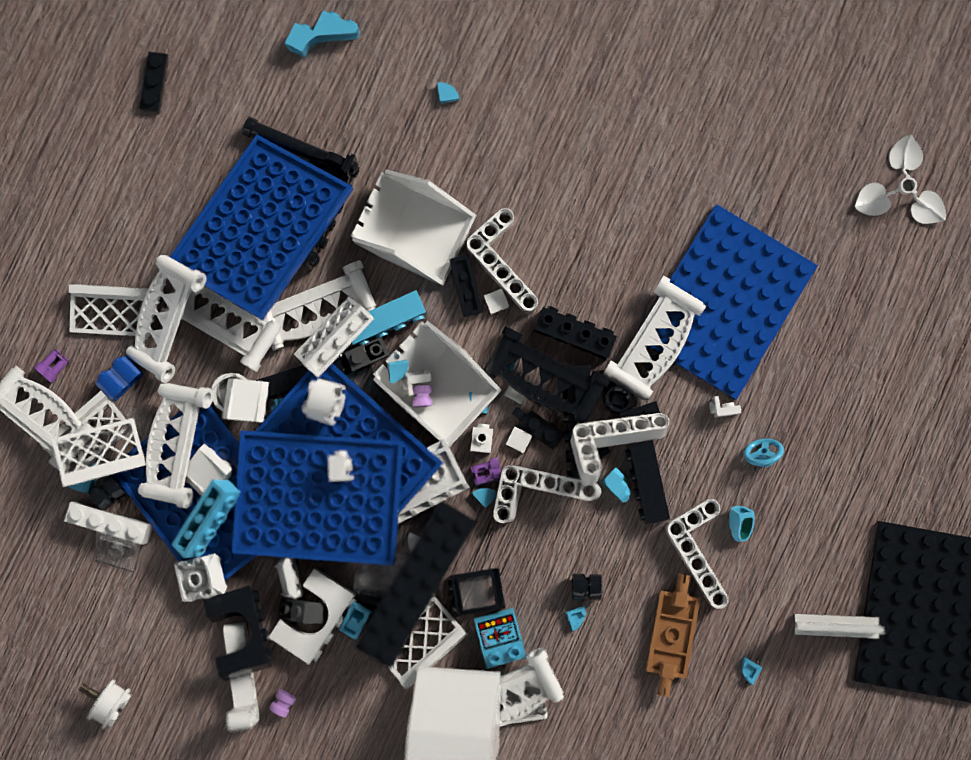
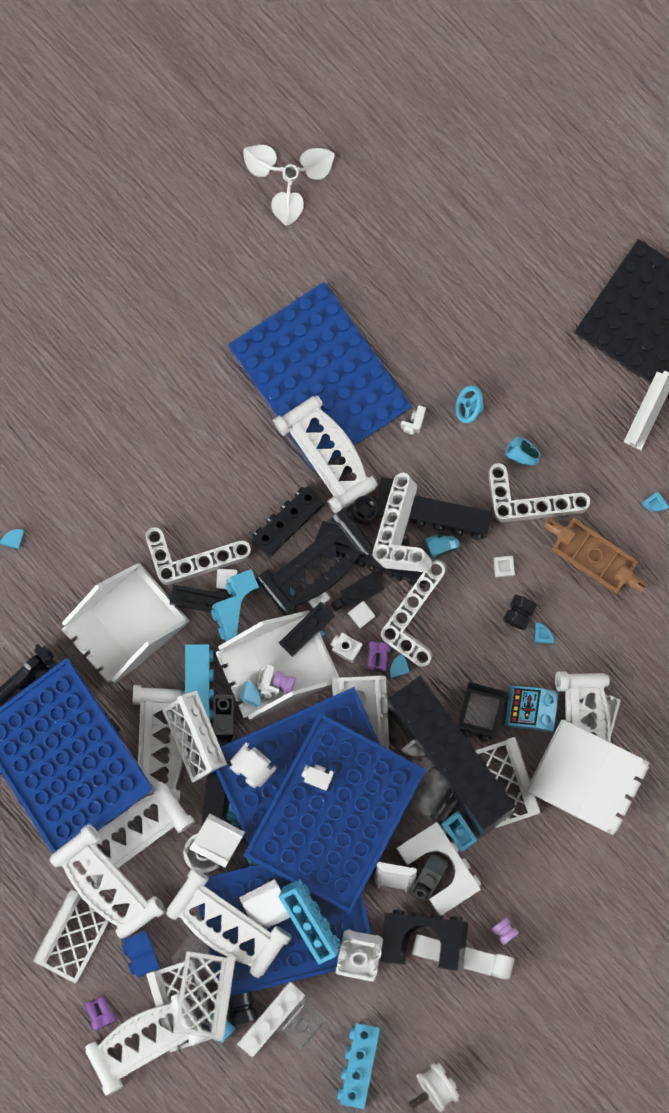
camera: 70 degrees left, 5 degrees down
(101, 622) = (359, 1066): none -> medium azure brick
(465, 315) = (228, 610): none -> medium azure arch
(481, 395) = (307, 629): none -> black plate
(624, 552) = (503, 566): none -> white tile

